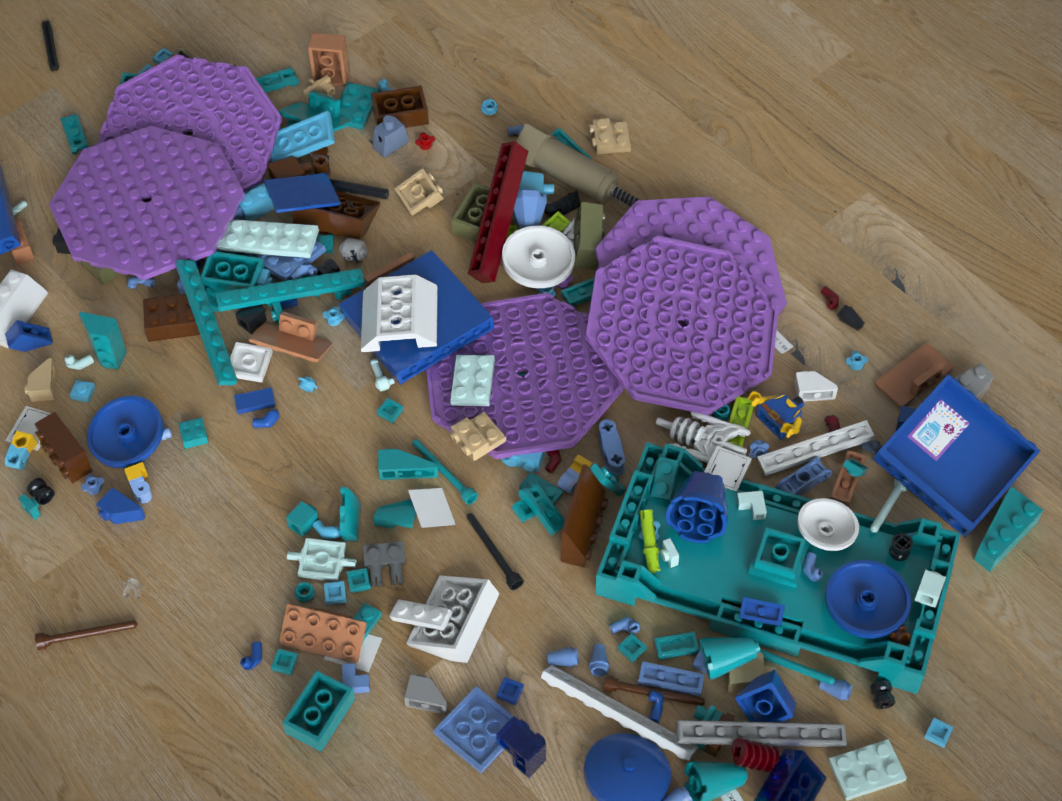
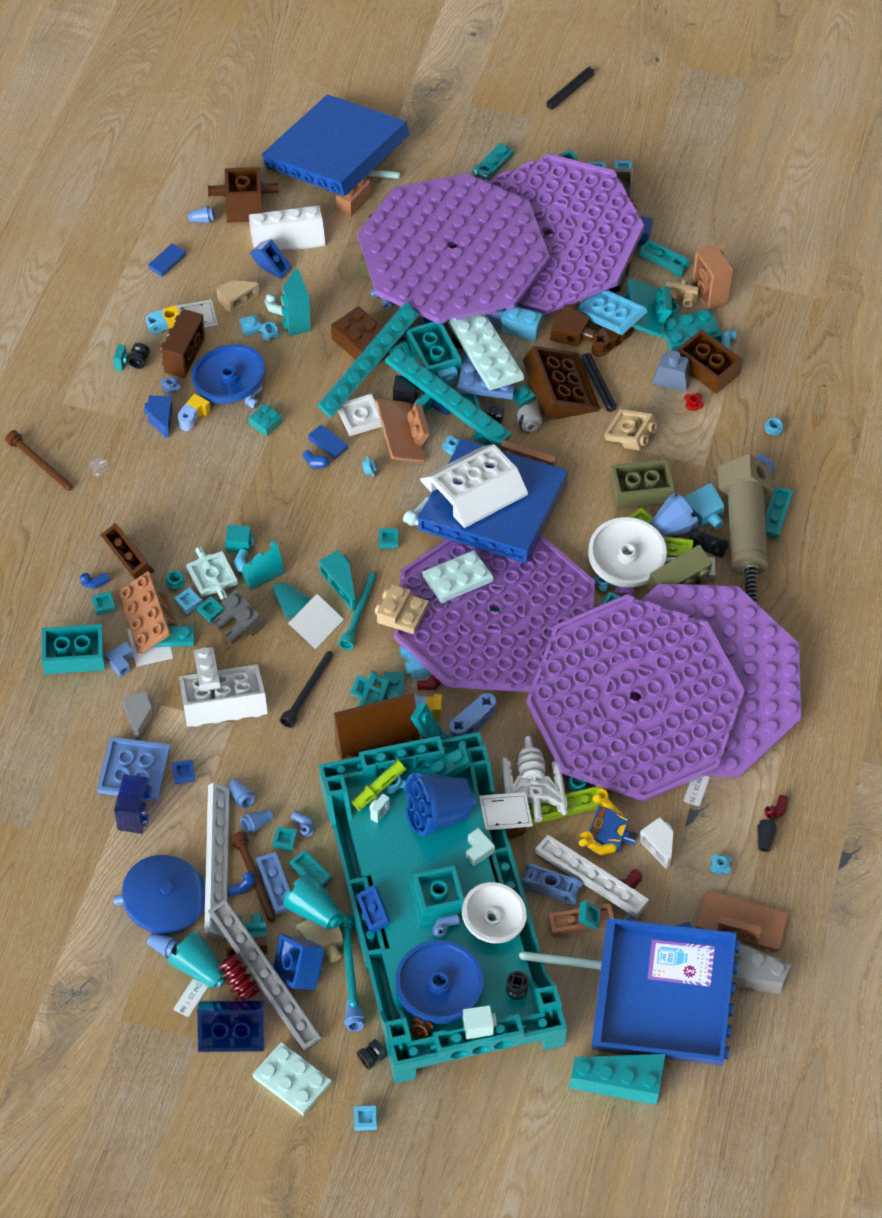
camera: 55 degrees right, 0 degrees up
(102, 379) = (269, 326): none -> medium azure plate
(250, 612) = (126, 551): none -> reddish brown brick
(301, 192) = (551, 344): blue piece -> none
(304, 270) = (476, 395): medium blue arm -> none
(498, 212) = (645, 492): dark red brick -> none
(609, 136) = (819, 535): tan plate -> none
(758, 448) = (558, 831): medium blue plate -> none

